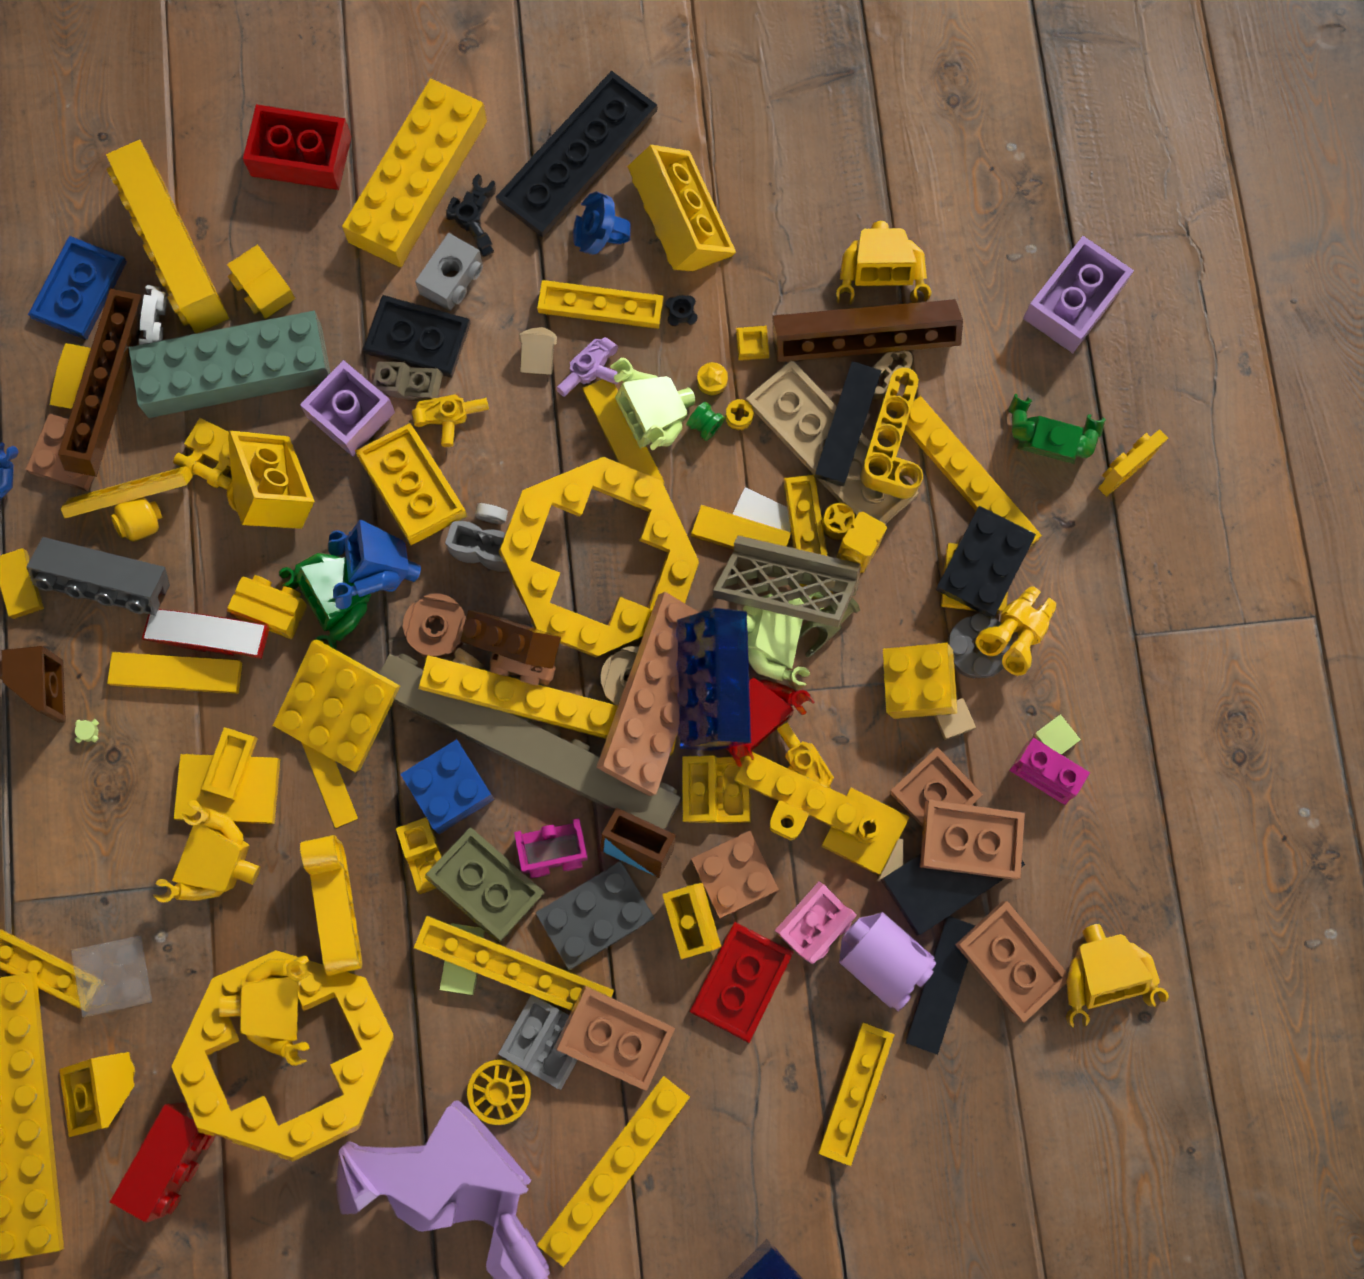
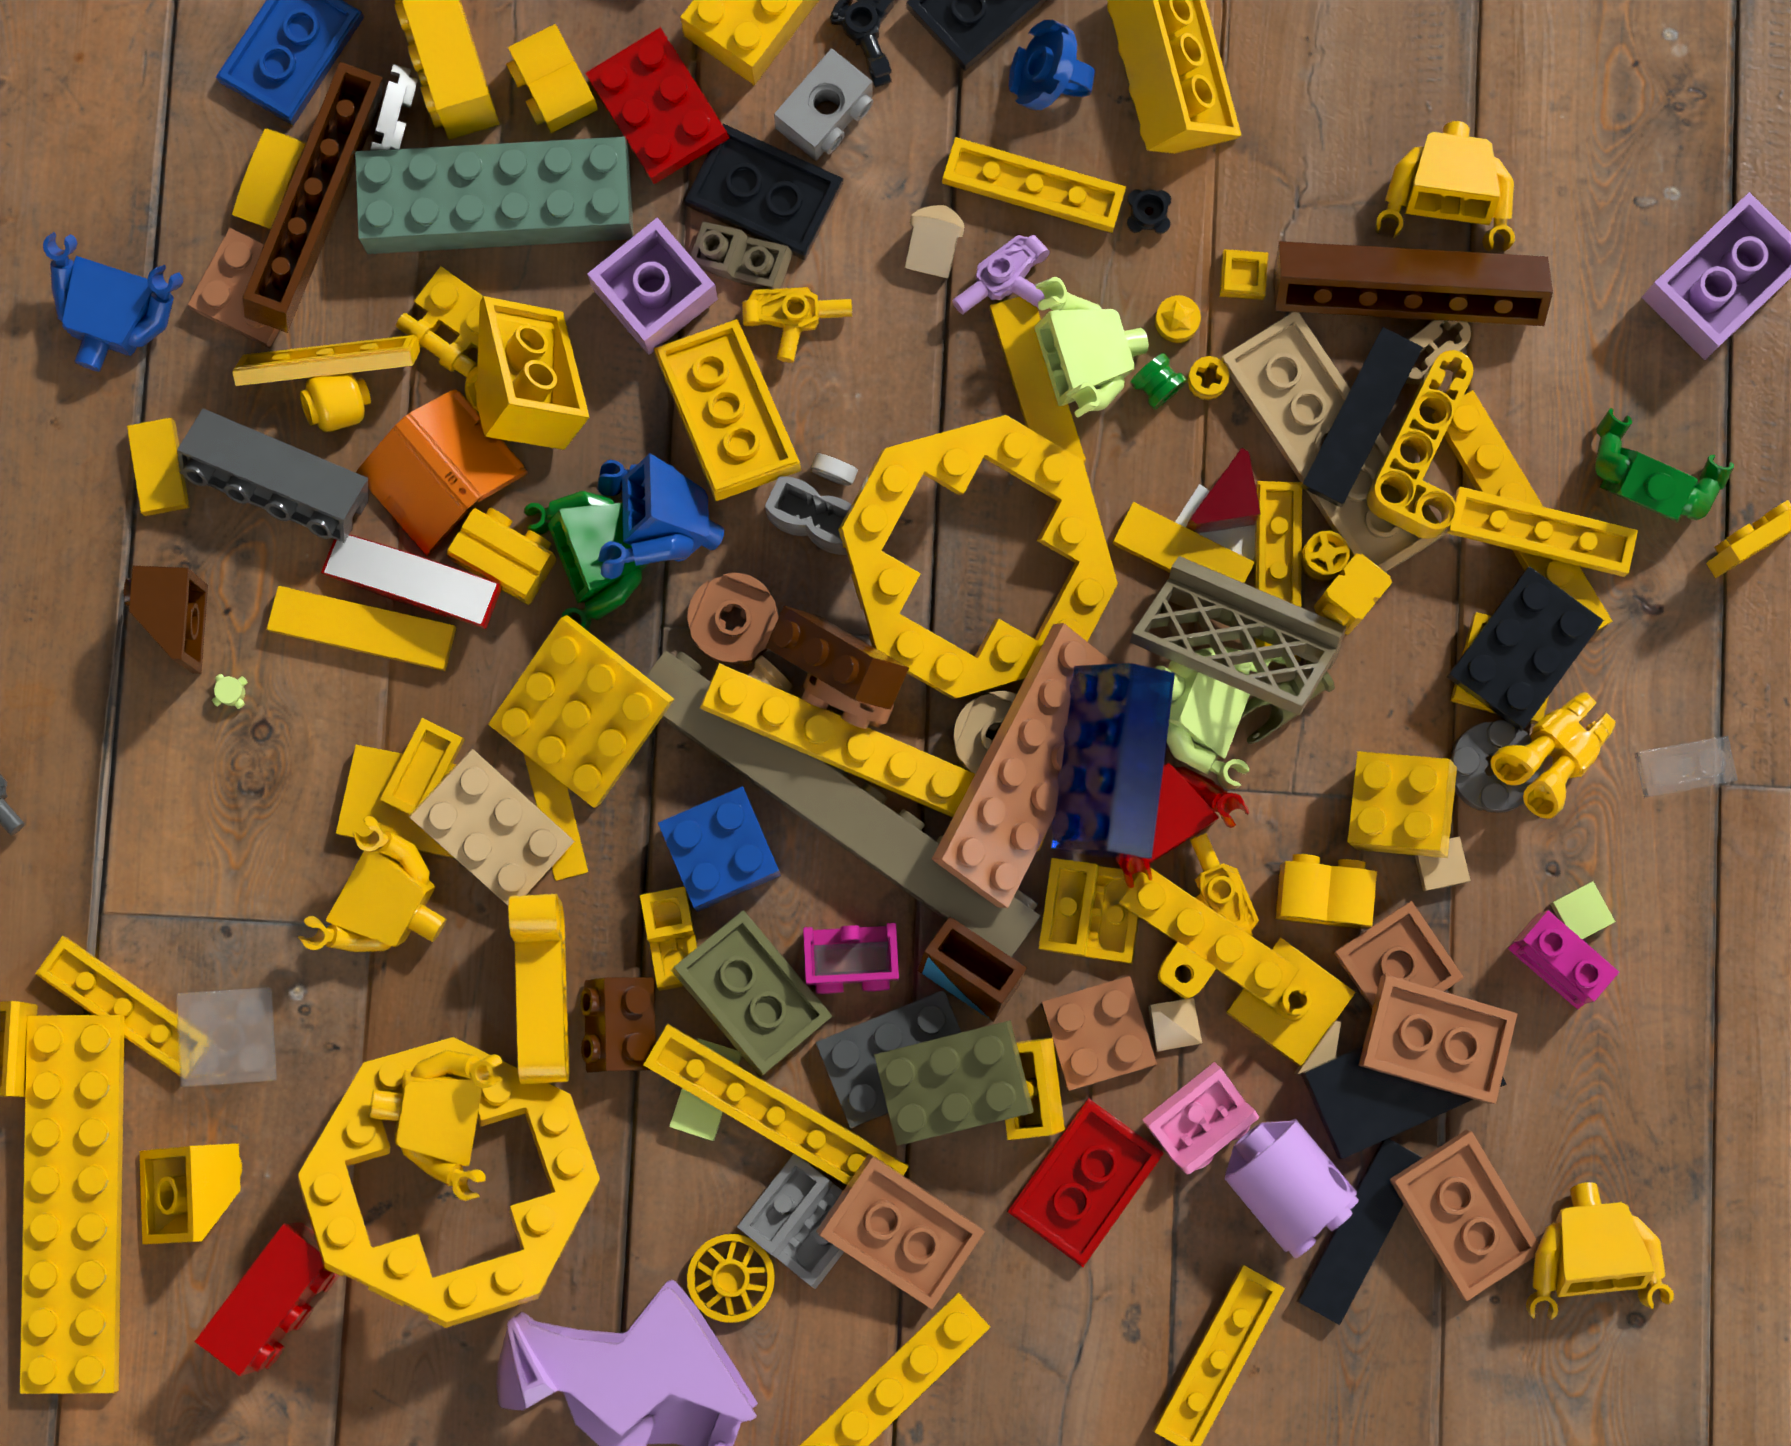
camera: 10 degrees right, 5 degrees up
(213, 552) = (437, 468): none -> orange piece
(283, 796) = (491, 828): none -> tan plate
(335, 289) = (657, 105): none -> red plate
(392, 921) = (618, 1023): none -> reddish brown bracket
(636, 925) = (954, 1083): none -> olive plate
(767, 494) = (1231, 500): none -> dark red slope
(787, 859) = (1174, 1024): none -> tan slope
(877, 751) = (1326, 893): none -> yellow brick
(984, 481) = (1543, 532): none -> yellow plate
(1109, 626) = (1686, 766): none -> clear plate

